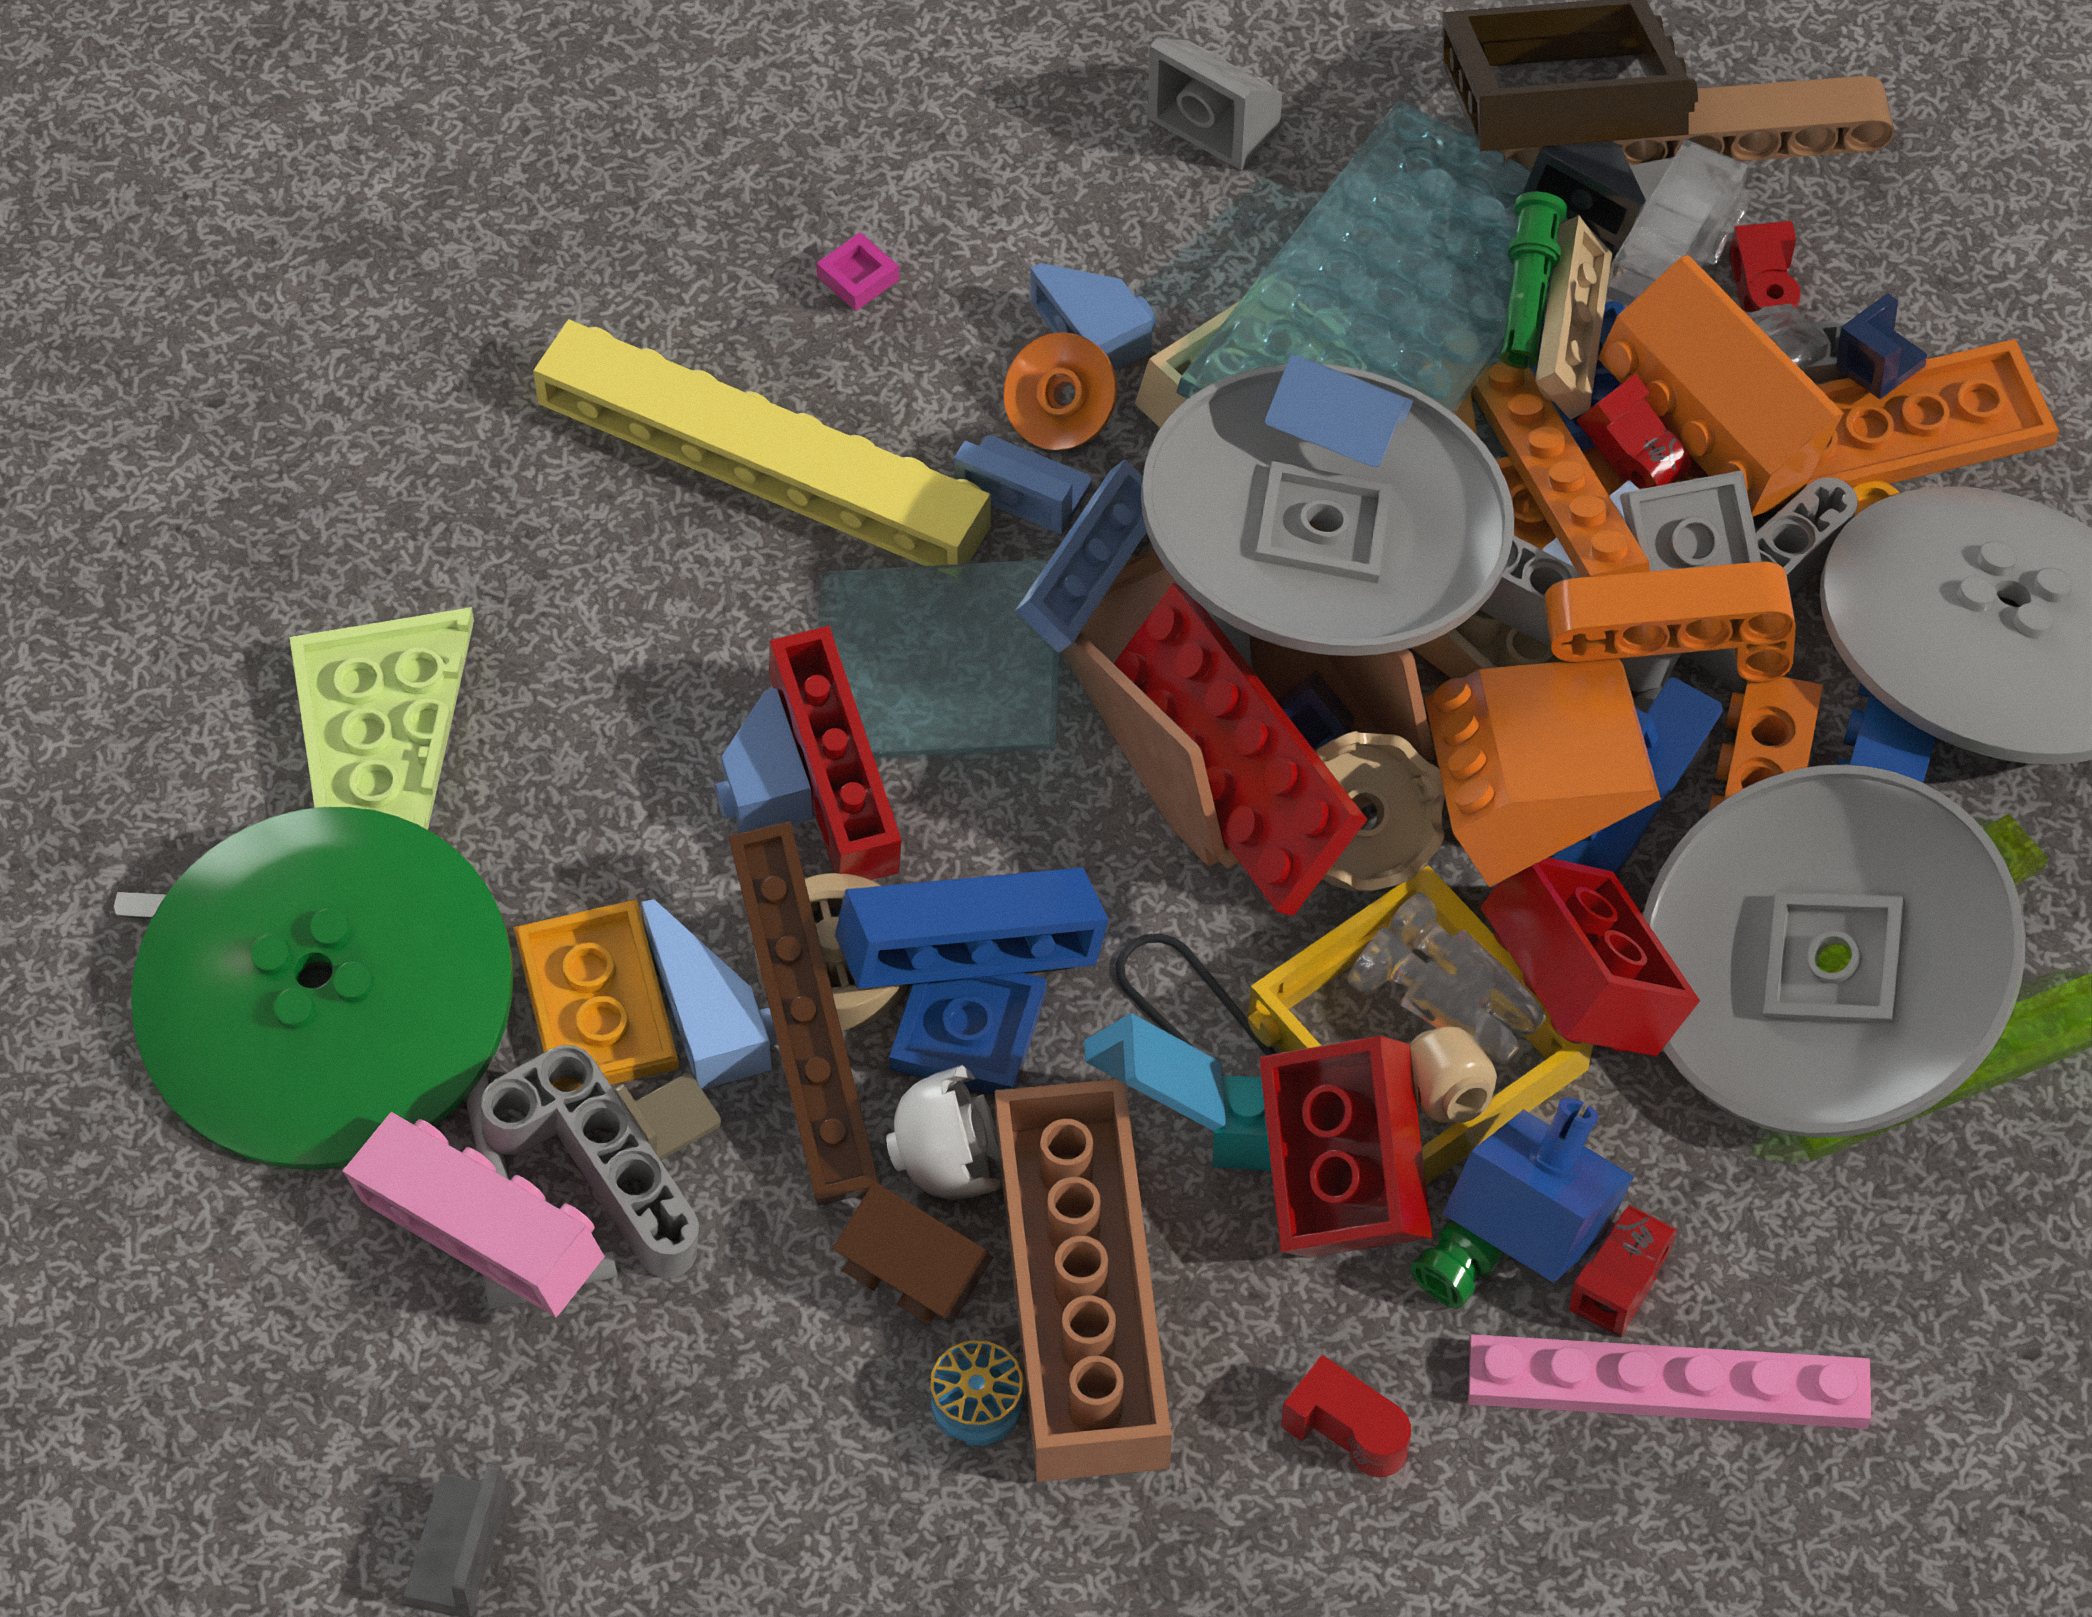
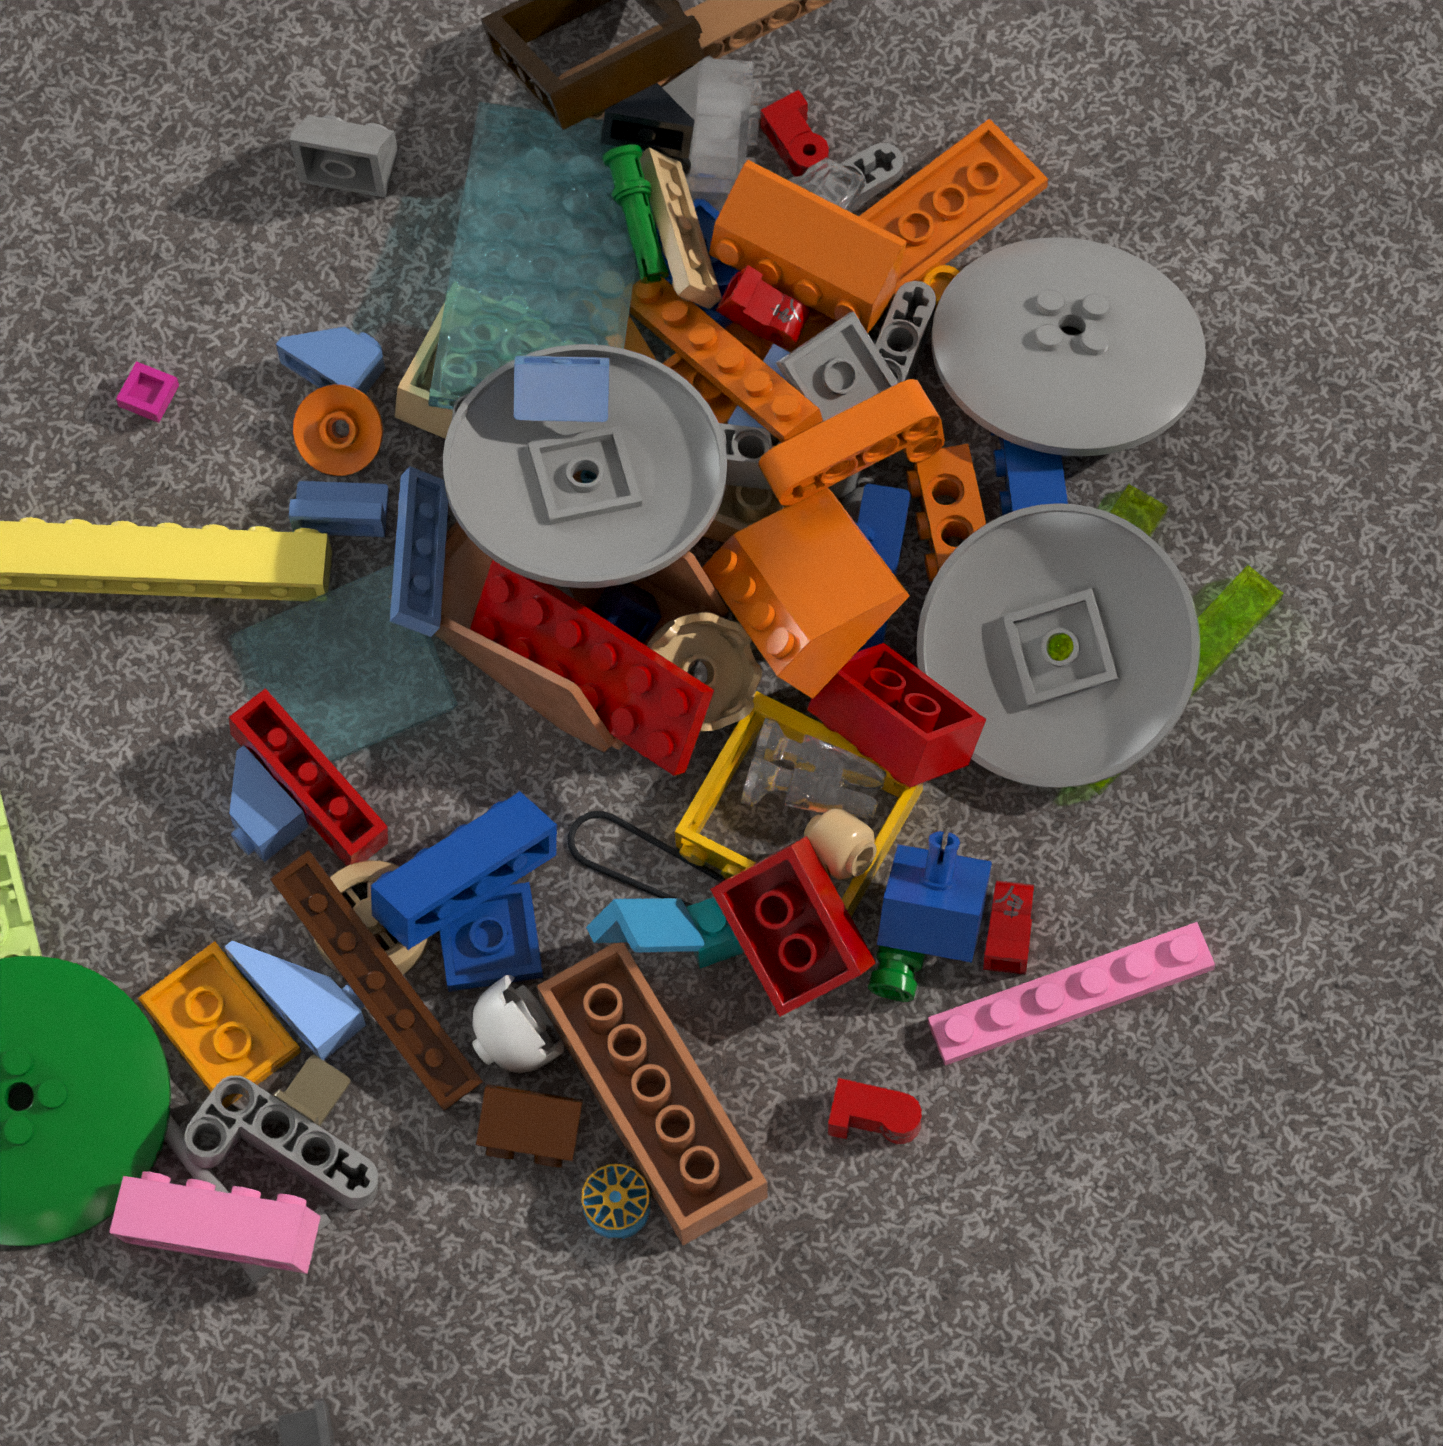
camera: 20 degrees left, 10 degrees up
(1876, 353) = (901, 170): dark blue panel -> none

